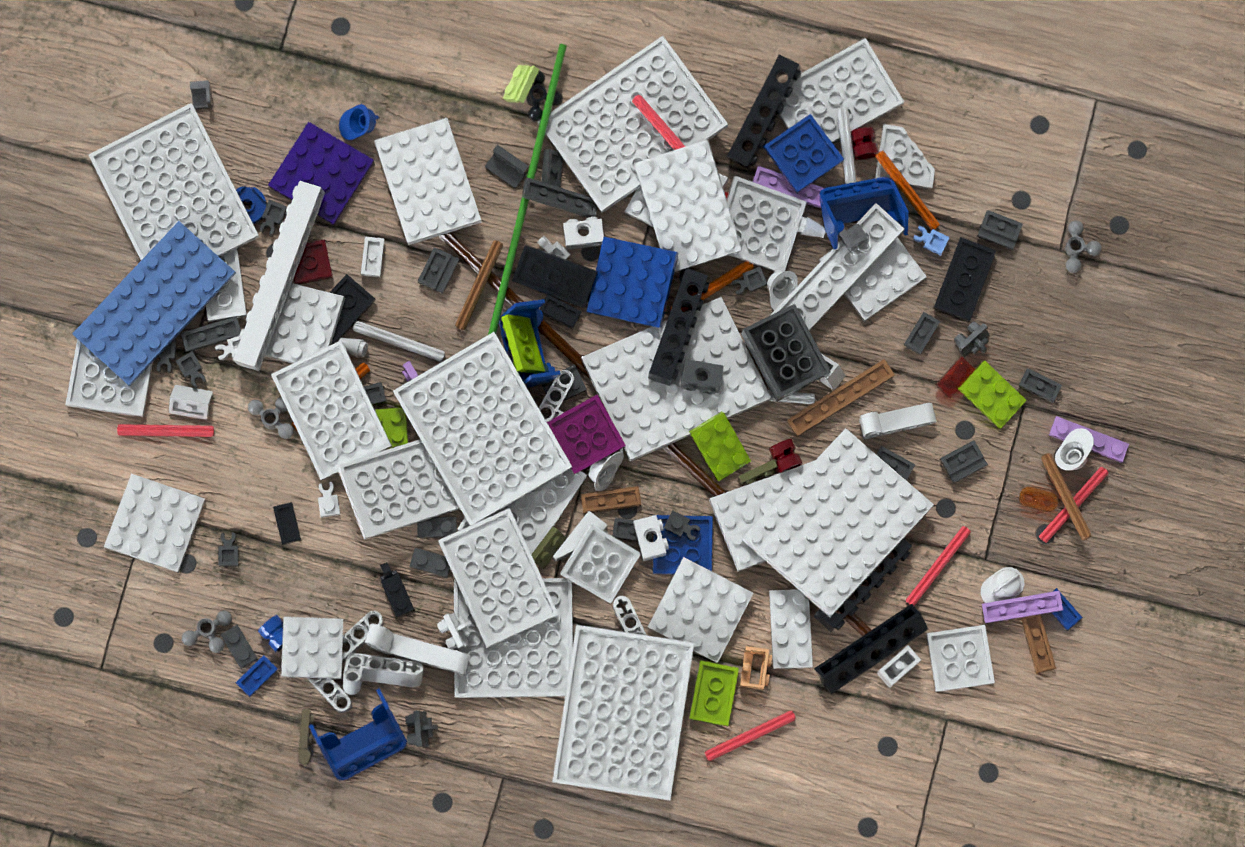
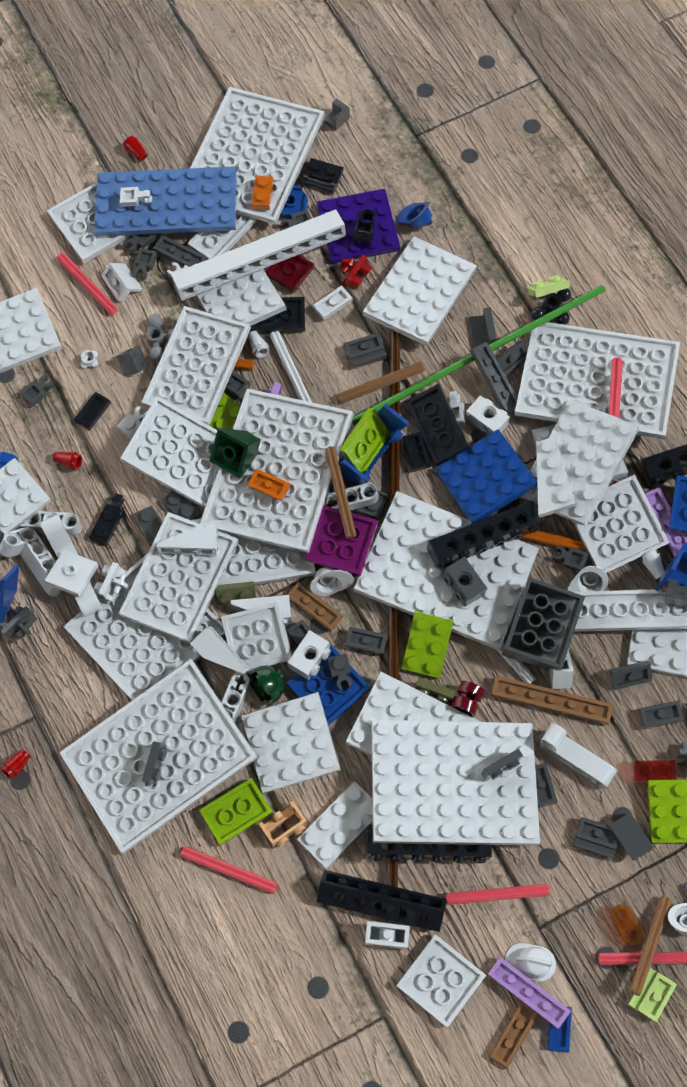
camera: 55 degrees right, 10 degrees down
(72, 282) = (135, 148): none -> red cone
(129, 328) = (132, 195): none -> white plate
(223, 221) = (262, 192): none -> orange plate
(237, 481) = (88, 354): none -> white plate
(244, 153) = (322, 171): none -> black plate
(274, 455) = (132, 361): none -> flat silver panel
(314, 577) = (68, 459): none -> red cone
(337, 175) = (364, 230): none -> black piece
(358, 214) = (361, 266): none -> red hips
(422, 654) = (71, 573): none -> white plate
(440, 447) = (234, 450): none -> dark green slope
(487, 538) = (195, 541): none -> white slope
(493, 447) = (269, 485): none -> orange plate
(531, 822) = (15, 764): none -> red cone
(551, 401) = (340, 492): none -> medium nougat axle
(582, 601) = (214, 648): none -> white slope
(627, 712) = (152, 770): none -> dark grey plate
(641, 587) = (267, 683): none -> dark green cylinder
(673, 486) = (366, 640): none -> dark grey plate
(690, 242) = (552, 480): none -> white wing
(858, 485) = (509, 761): none -> dark grey plate
(875, 326) = (631, 675): none -> dark grey plate
(985, 437) = (631, 836): none -> dark grey panel
(1099, 526) = (653, 996): none -> yellowish green plate

